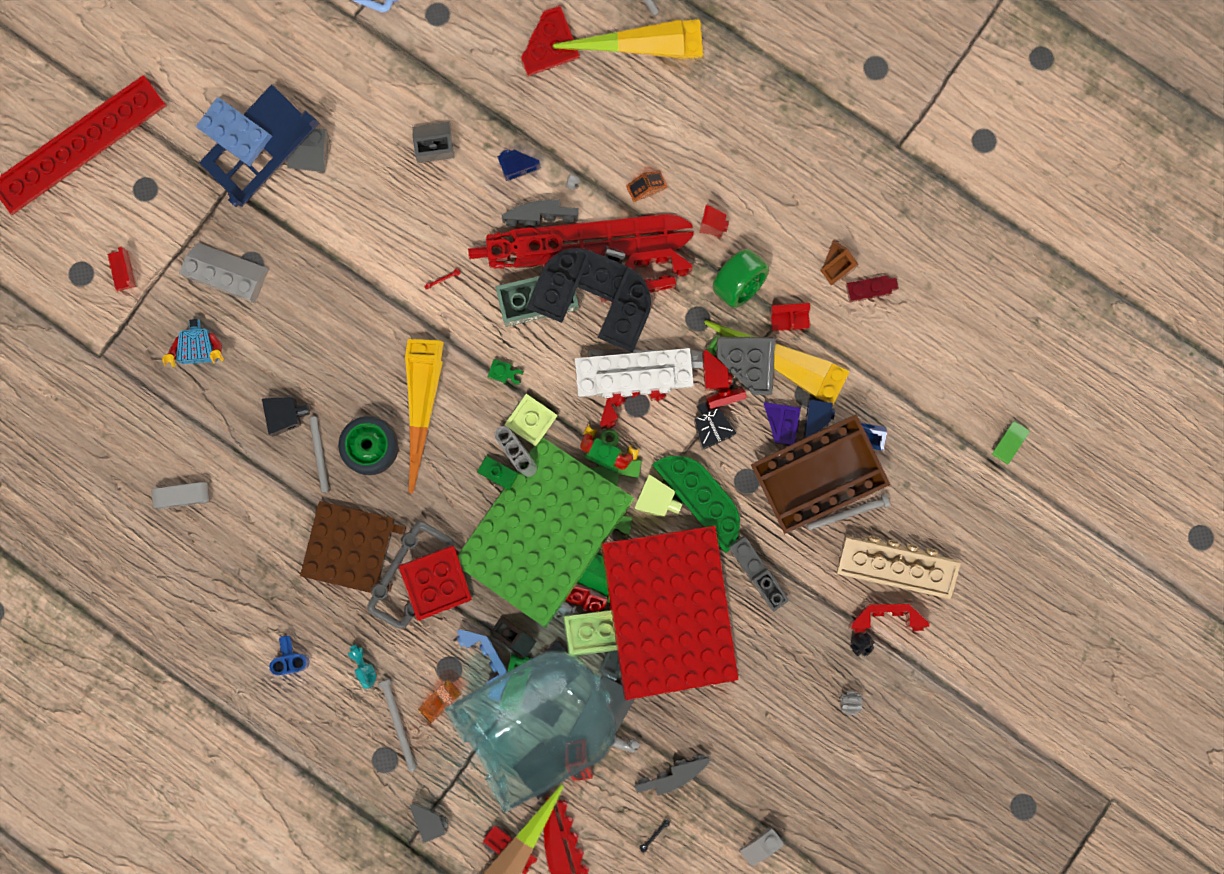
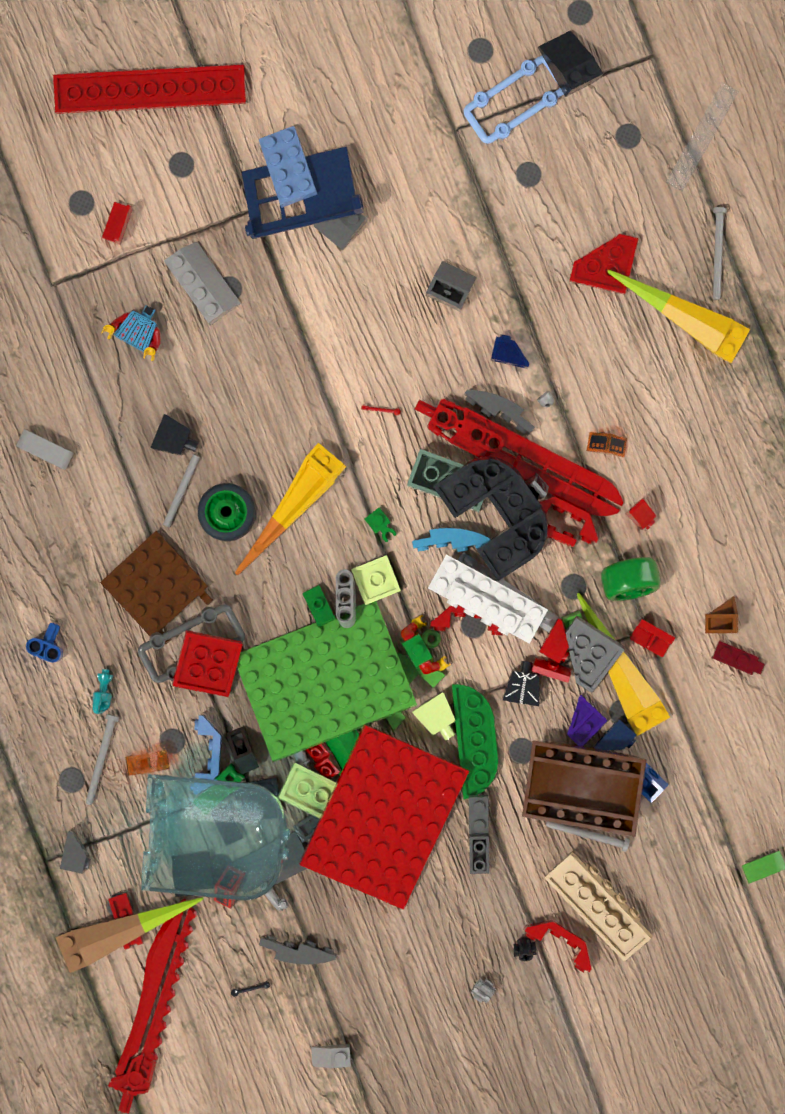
camera: 35 degrees right, 5 degrees up
(577, 340) = (459, 539): none -> dark azure slope

